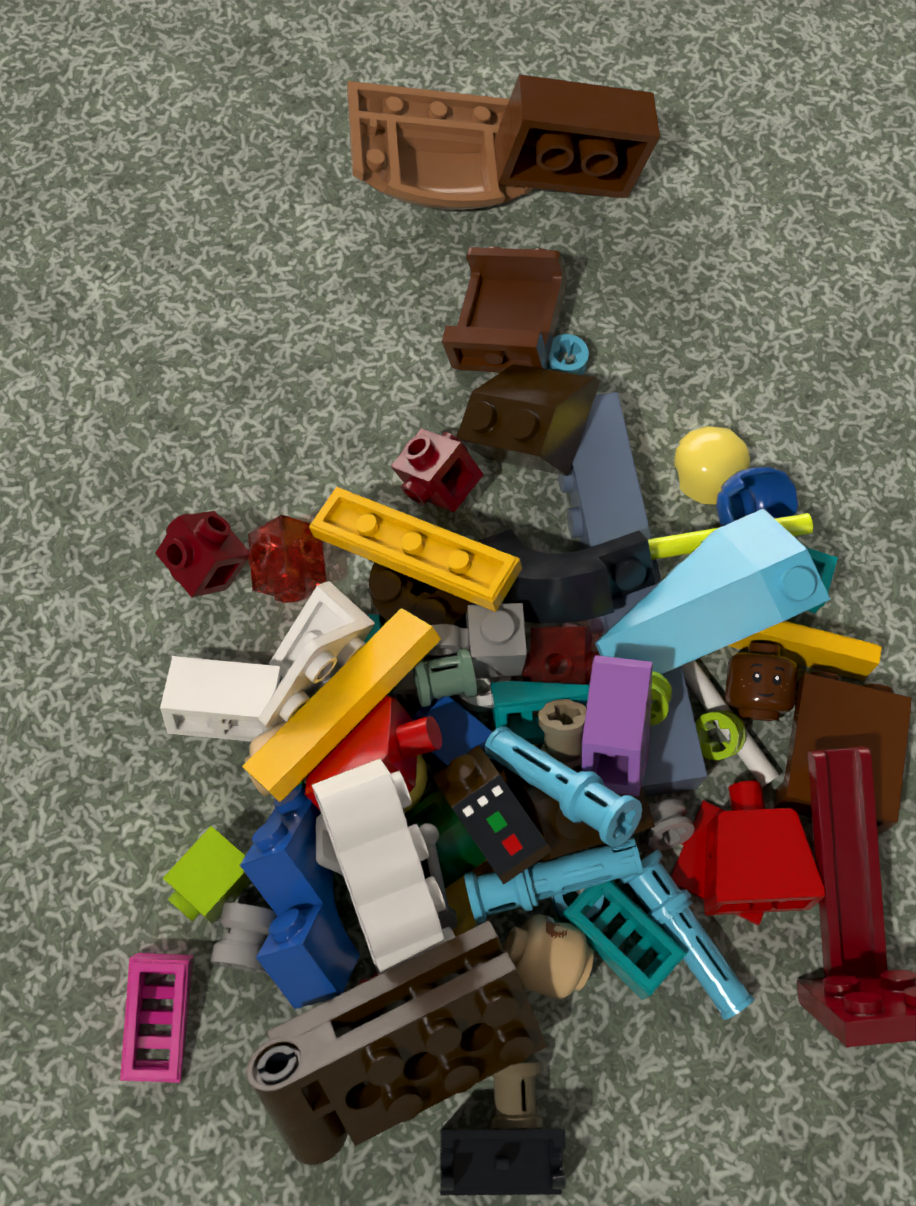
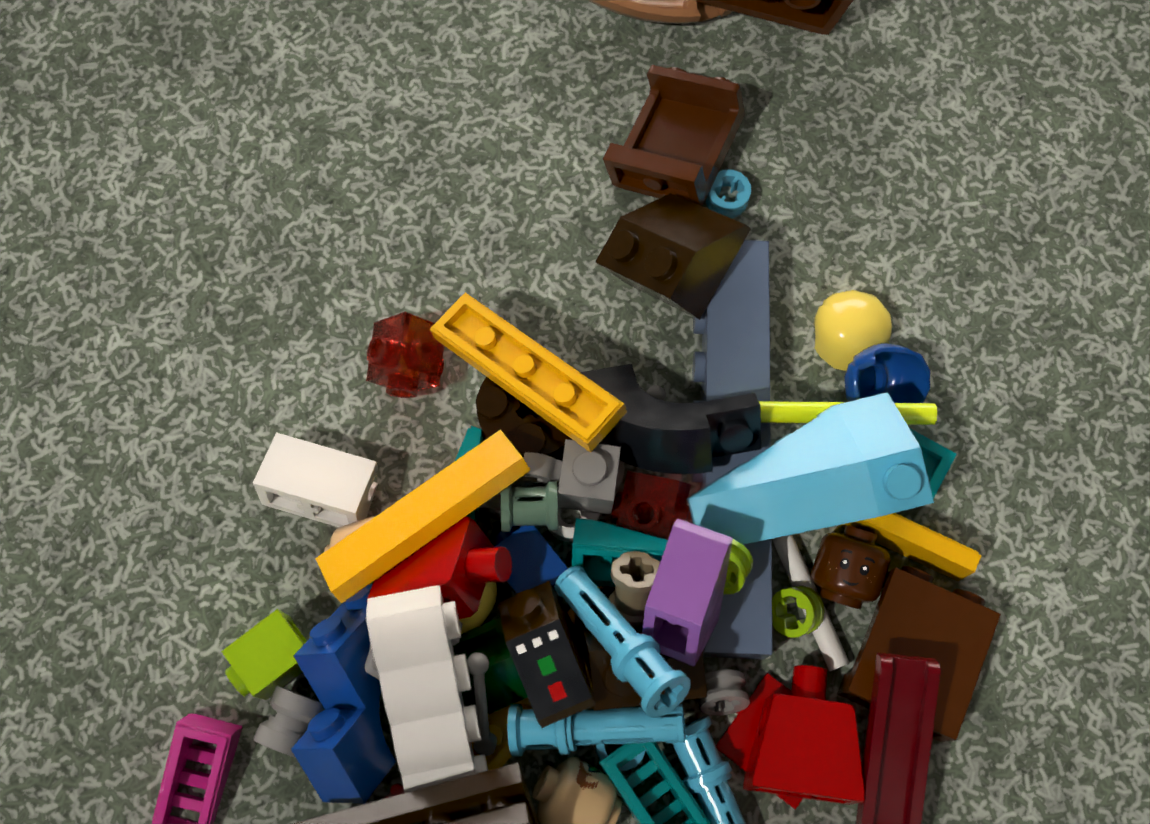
camera: 15 degrees right, 5 degrees up
(202, 553) = (326, 334): dark red brick -> none
(315, 649) = (410, 454): white bracket -> none
(436, 470) = (571, 290): dark red brick -> none

